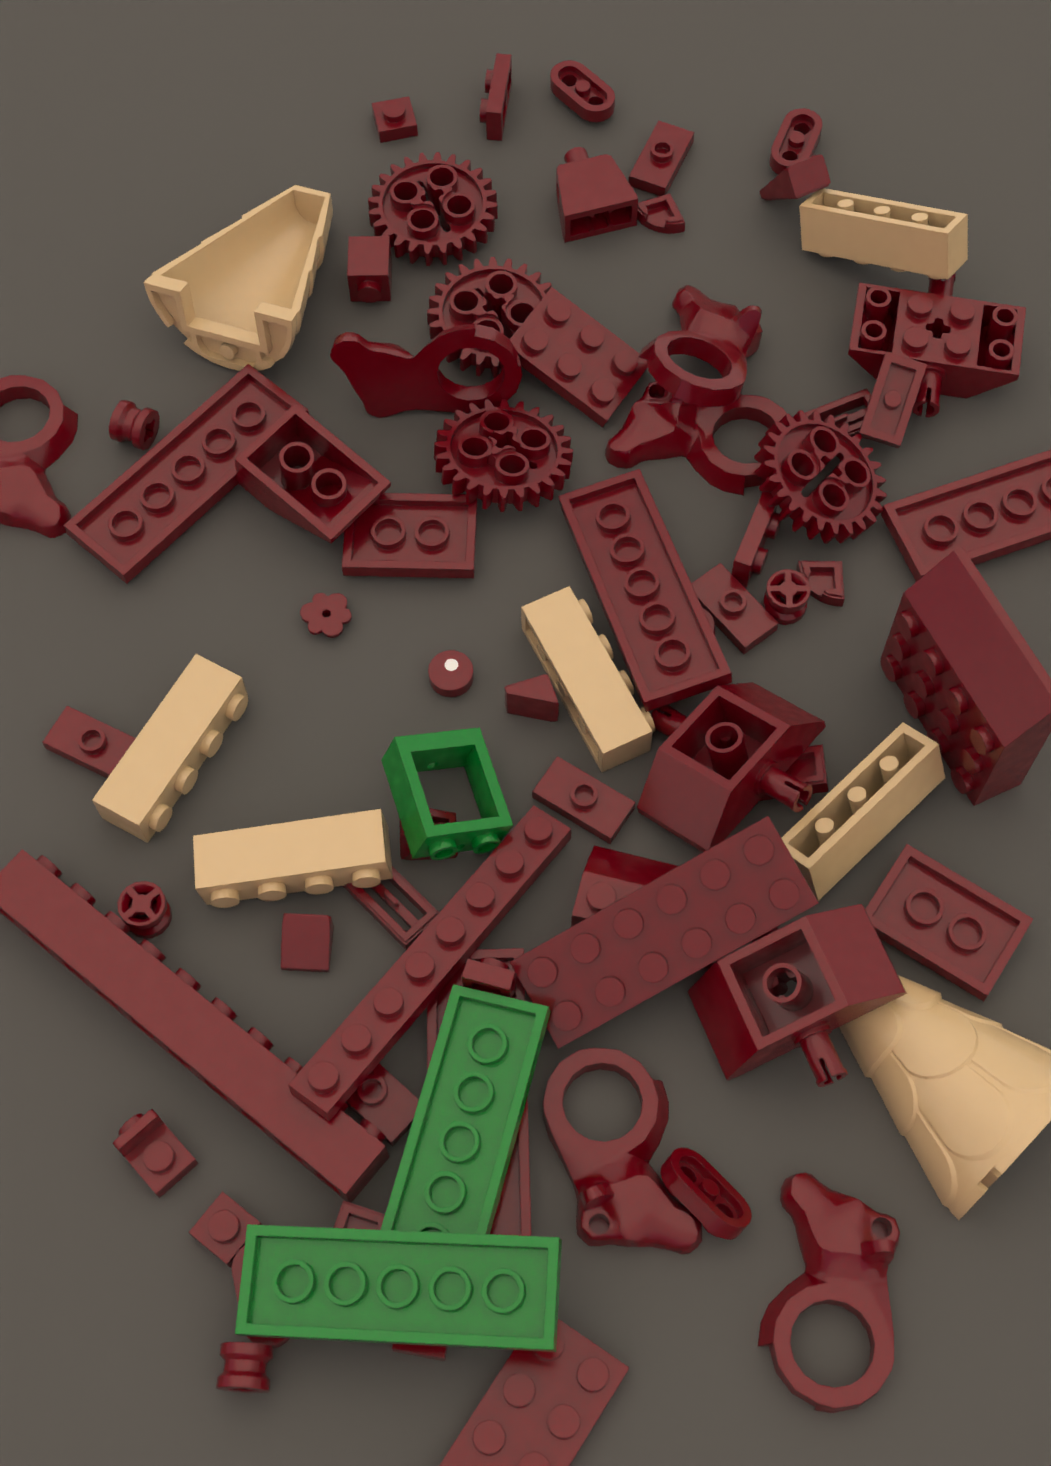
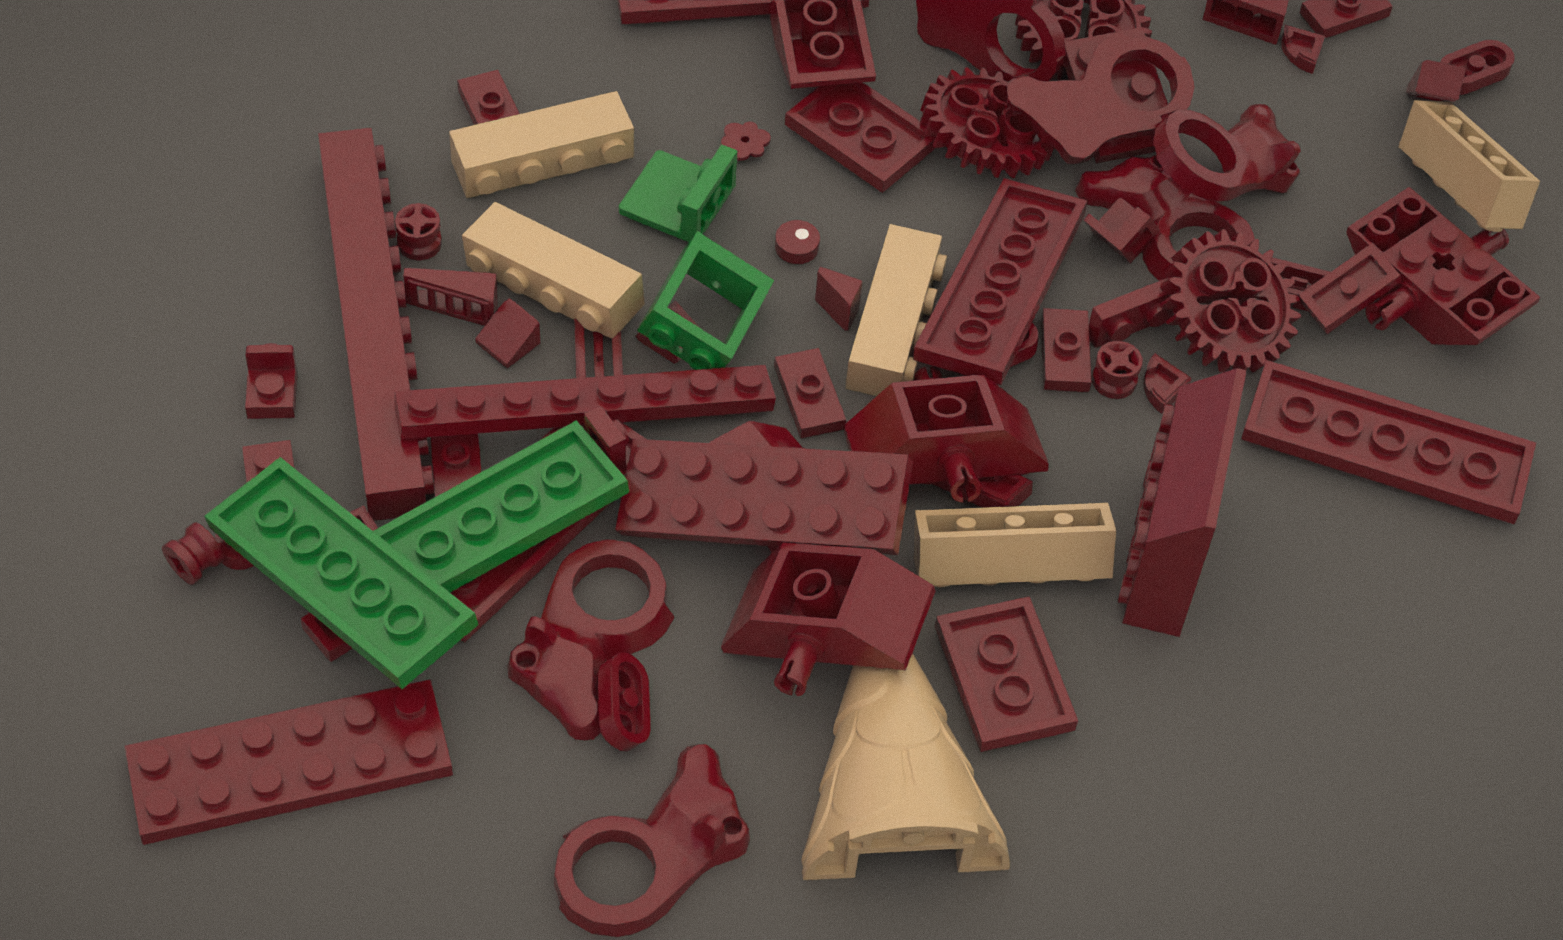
camera: 35 degrees right, 10 degrees down
(234, 941) = (453, 293): none -> dark red slope
(323, 705) = (680, 194): none -> green bracket
(581, 395) = (1087, 112): none -> dark red animal
(682, 470) = (1124, 229): none -> dark red panel

